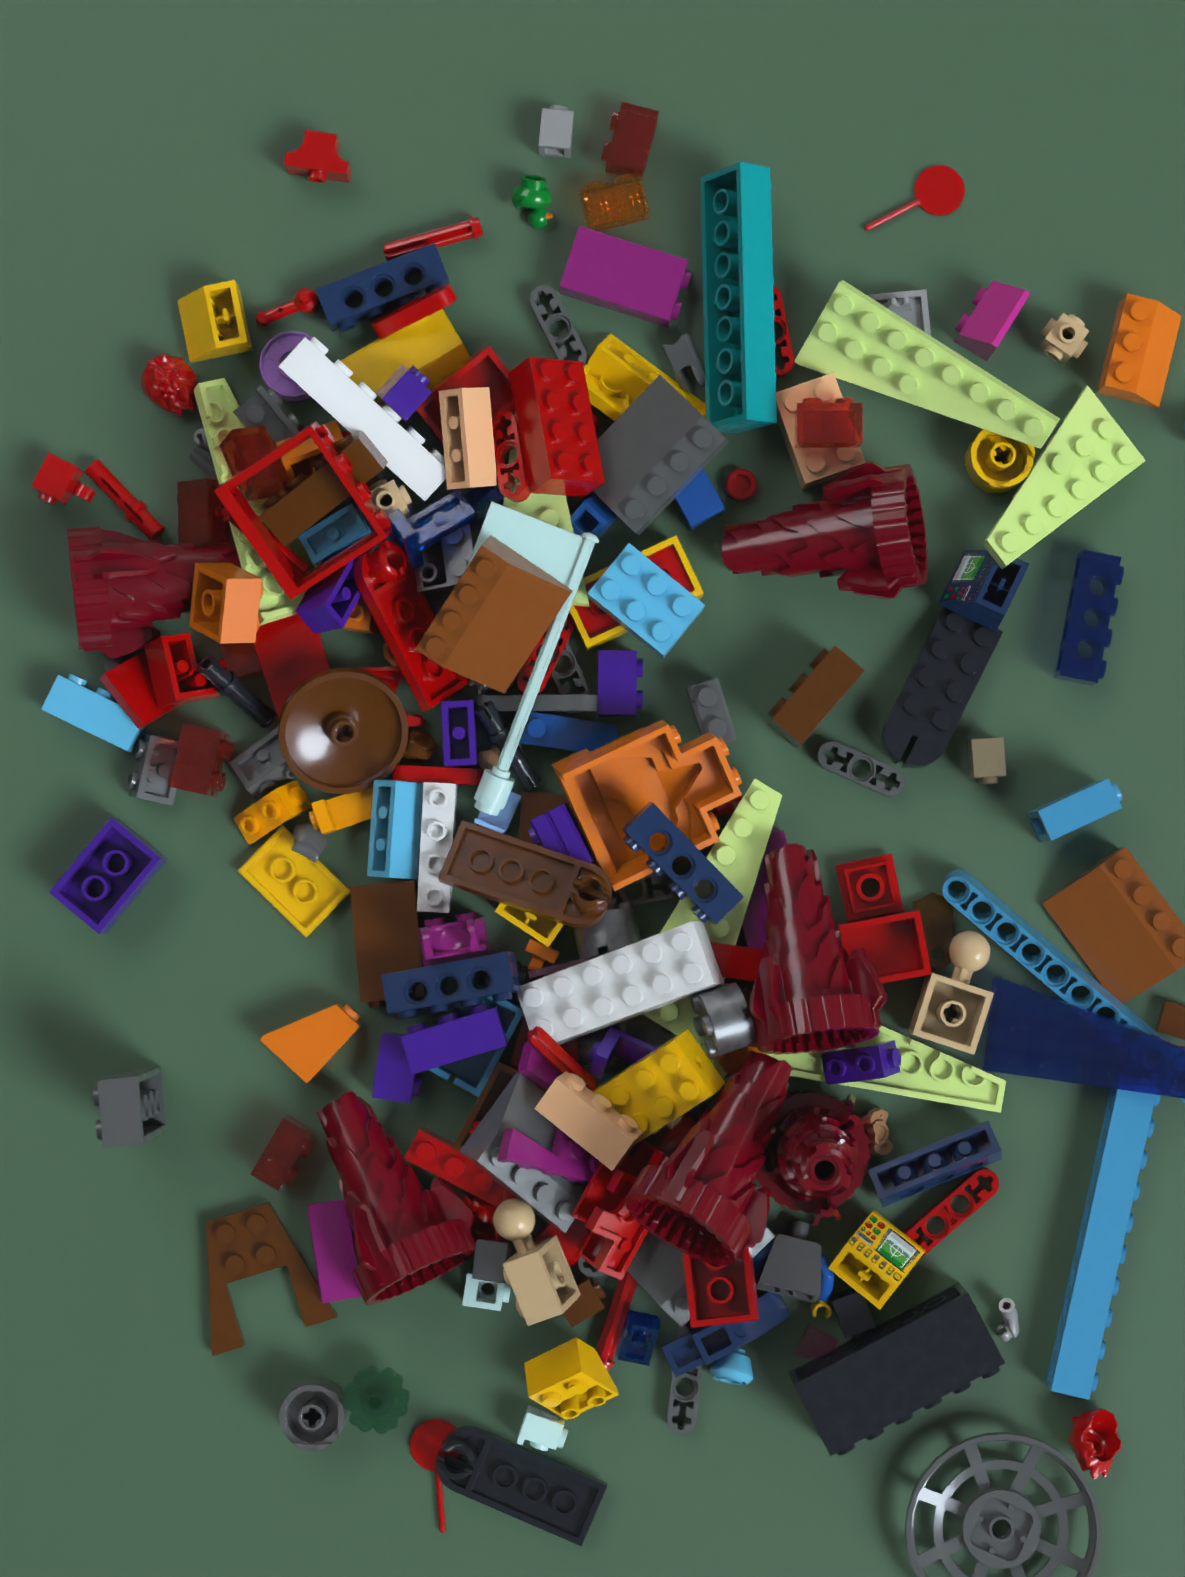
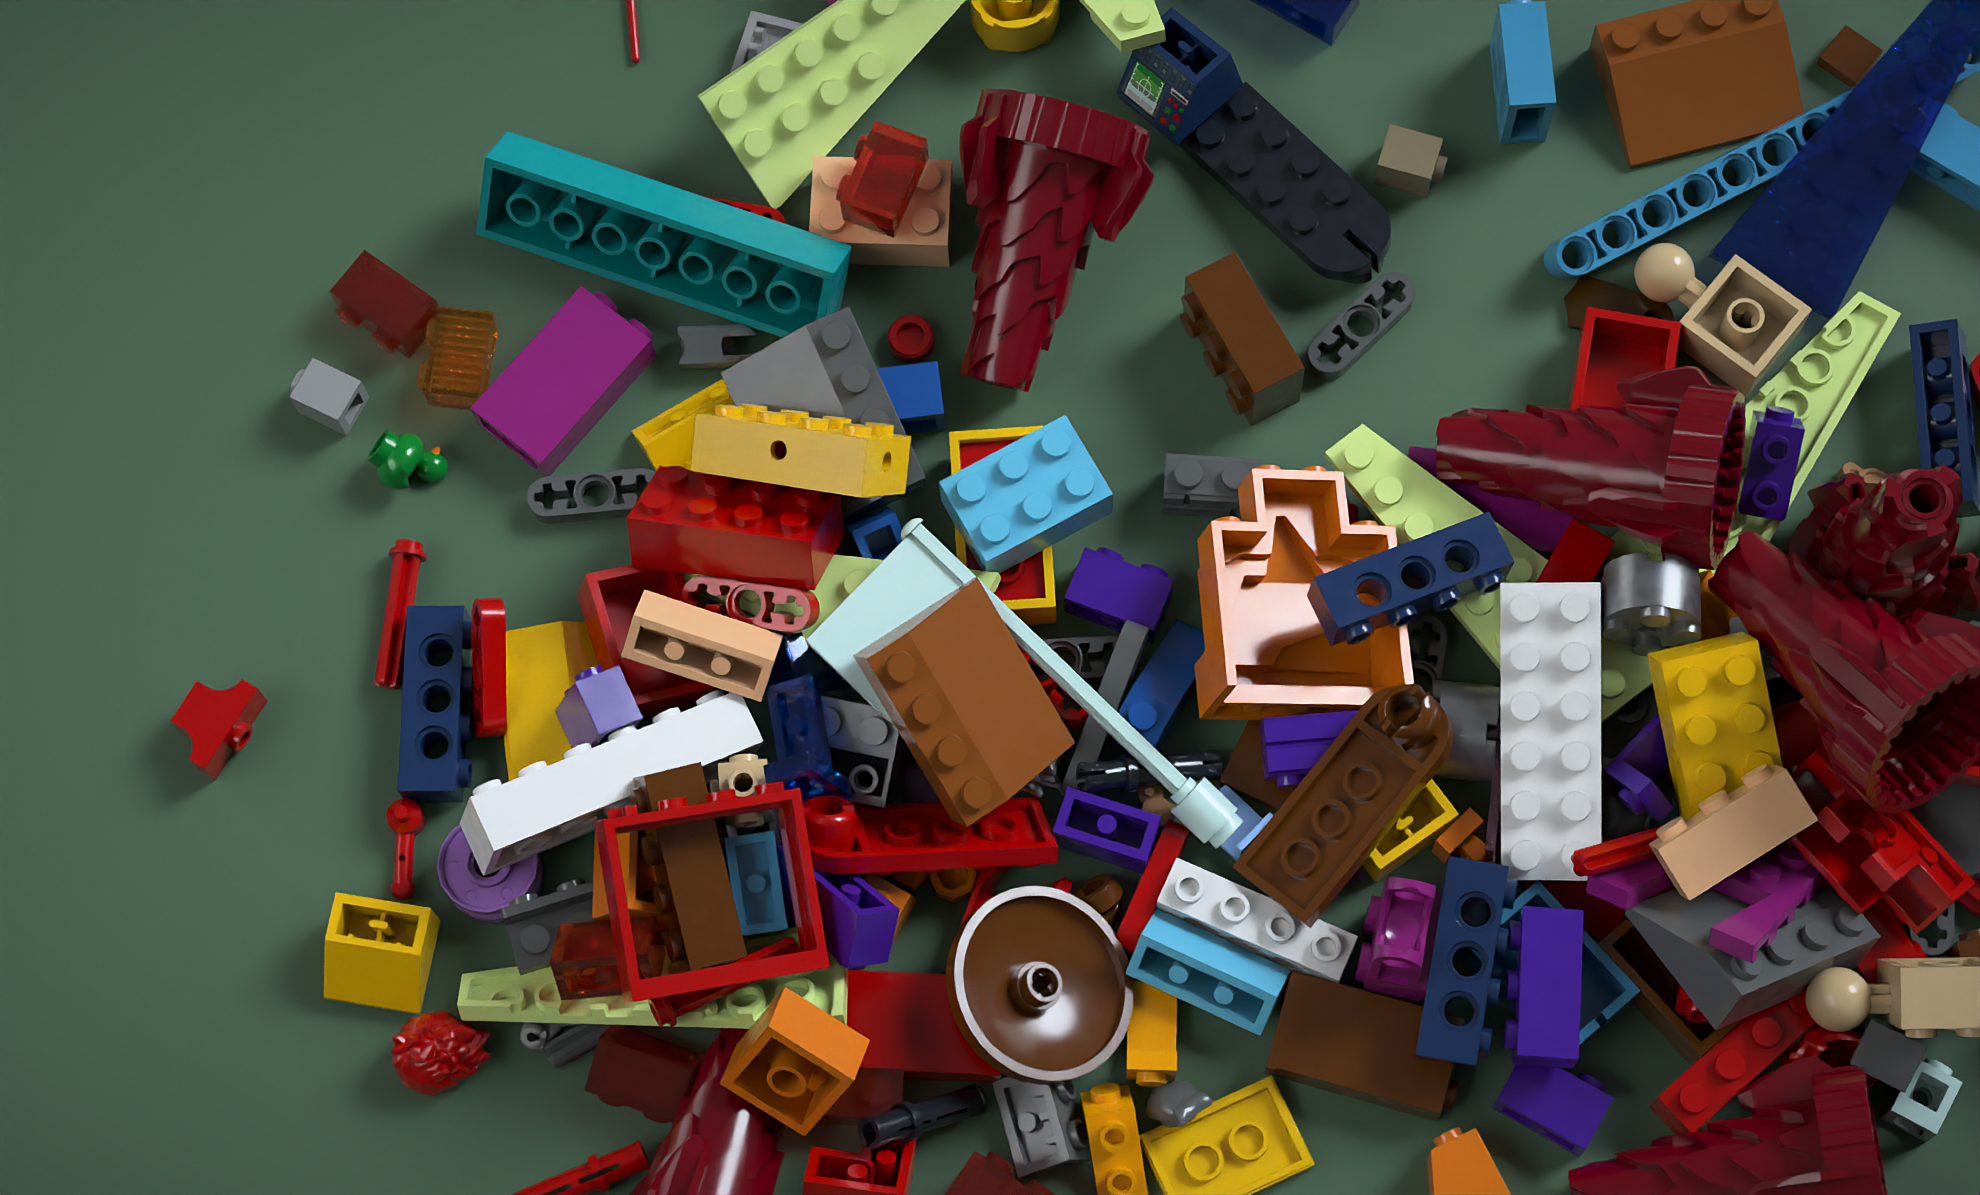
camera: 65 degrees left, 15 degrees down
(614, 448) = (801, 450): none -> yellow brick
(855, 903) = (1507, 389): red piece -> none

